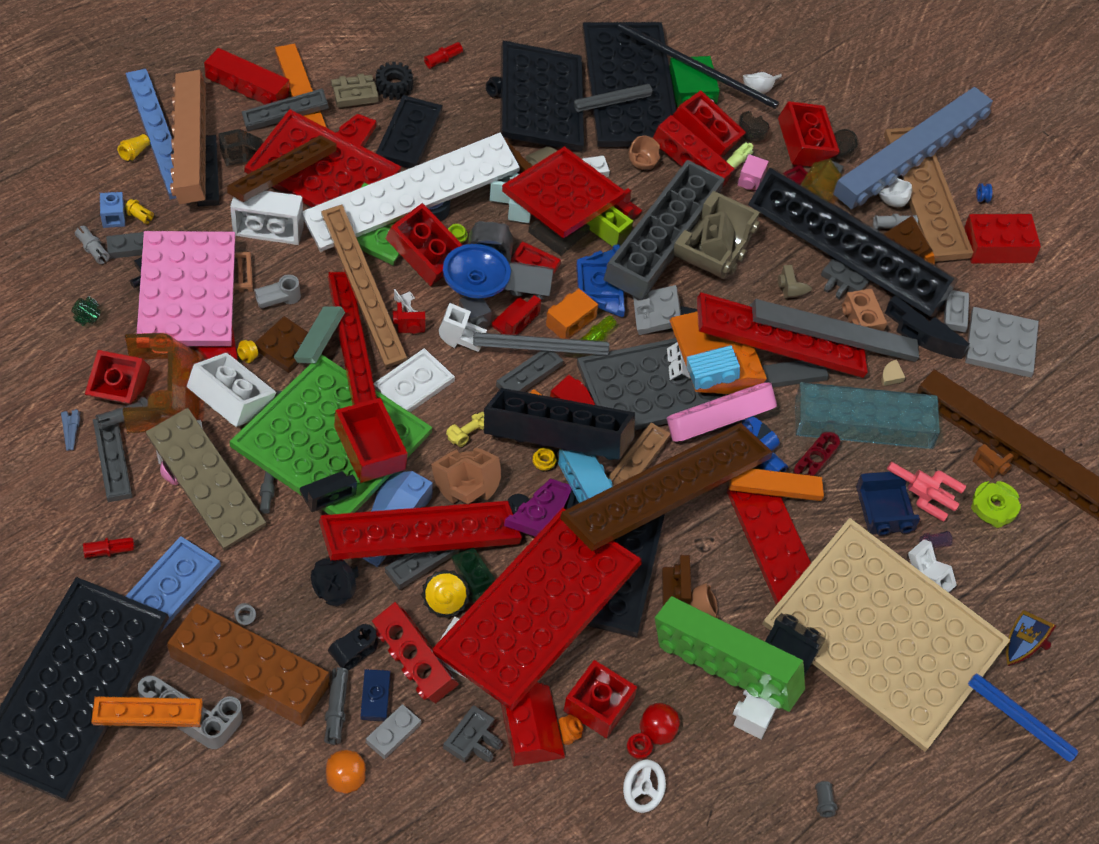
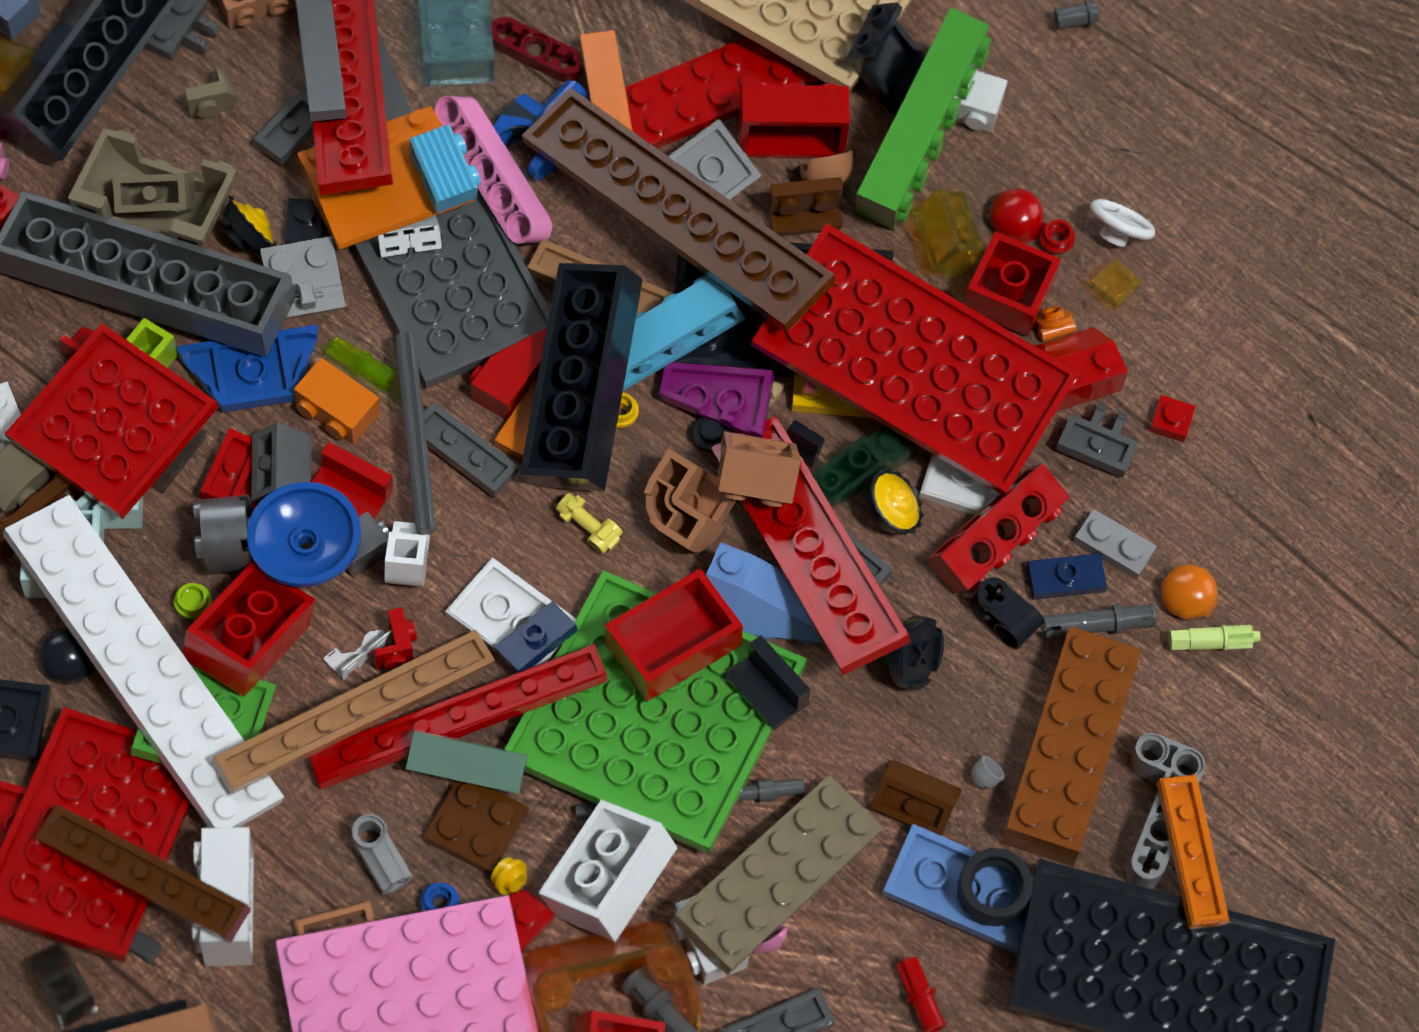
camera: 100 degrees left, 10 degrees up
(160, 573) = (994, 858): none -> black tyre
(240, 314) = (436, 891): none -> blue plate
(241, 571) = (915, 797): none -> reddish brown panel
(307, 777) = (1214, 638): none -> yellowish green piece
(392, 383) = (536, 638): none -> dark blue plate
(477, 504) = (758, 469): none -> nougat slope
(483, 792) = (1172, 418): none -> red plate
(500, 552) = (807, 441): none -> black tile
(595, 775) = (1116, 284): none -> clear yellow plate
(646, 667) = (948, 232): none -> clear yellow brick
(694, 282) = (247, 225): none -> black piece
(713, 535) = (717, 161): none -> light grey hinge
(743, 584) = (793, 120): none -> red piece

